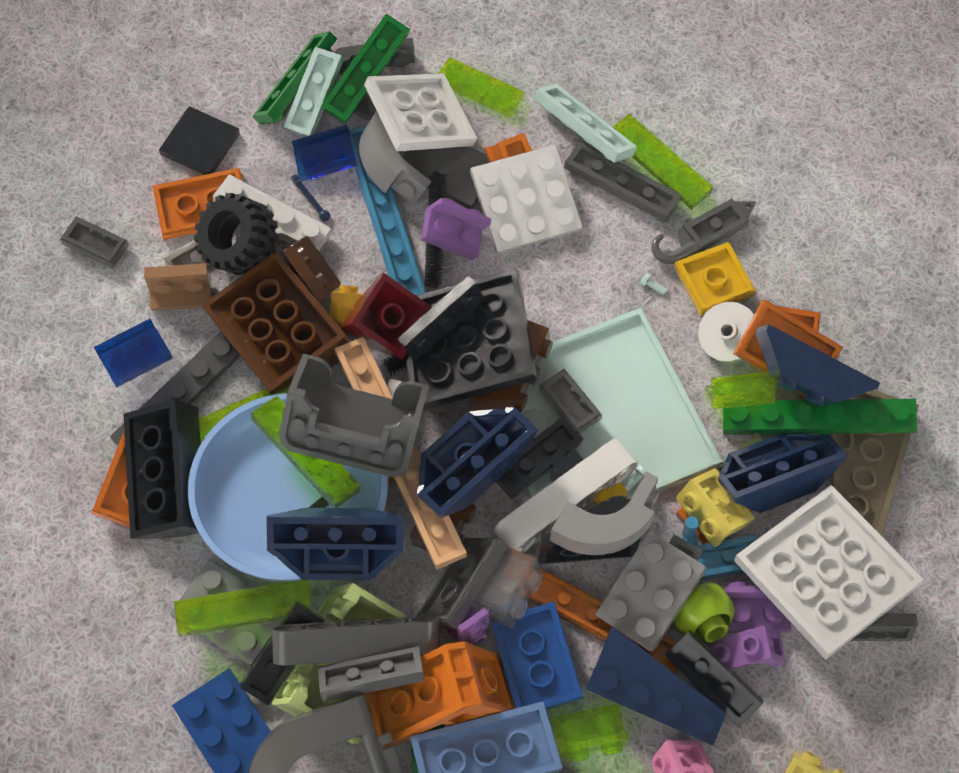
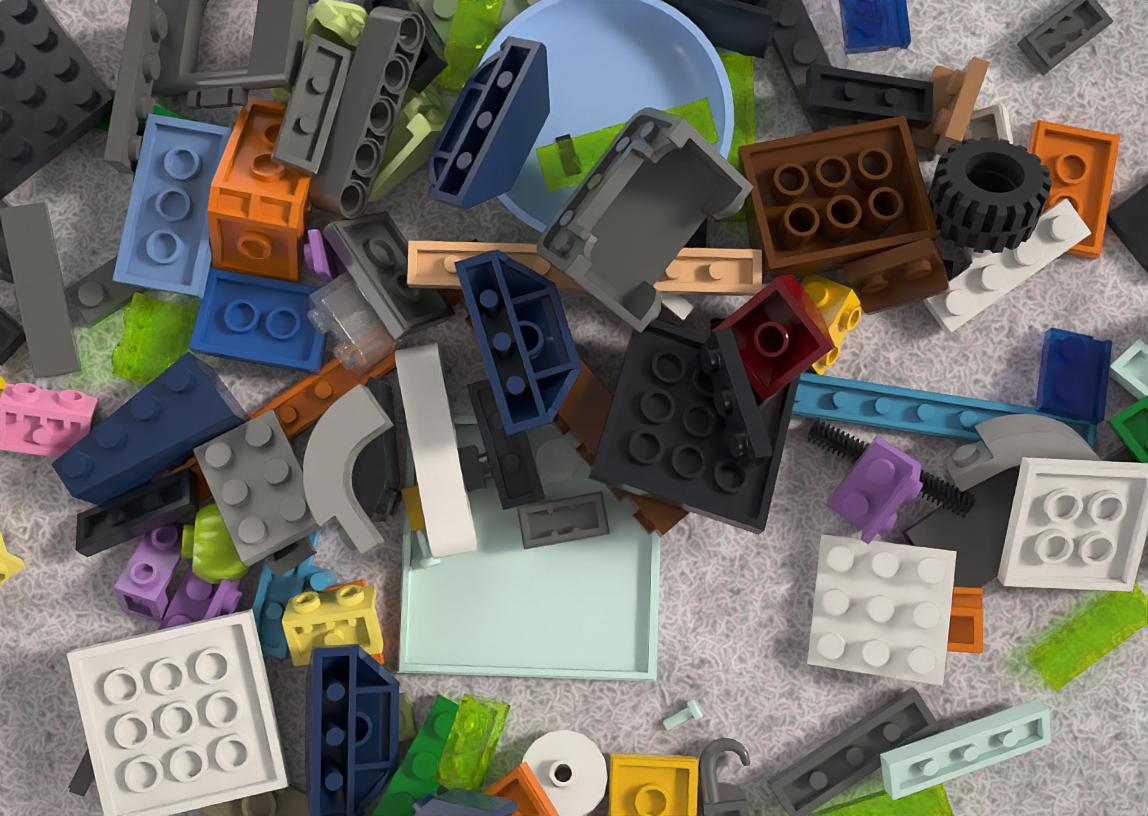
camera: 120 degrees right, 20 degrees up
(195, 334) = (868, 95): none -> black plate
(324, 215) = (979, 337): dark blue hinge -> none

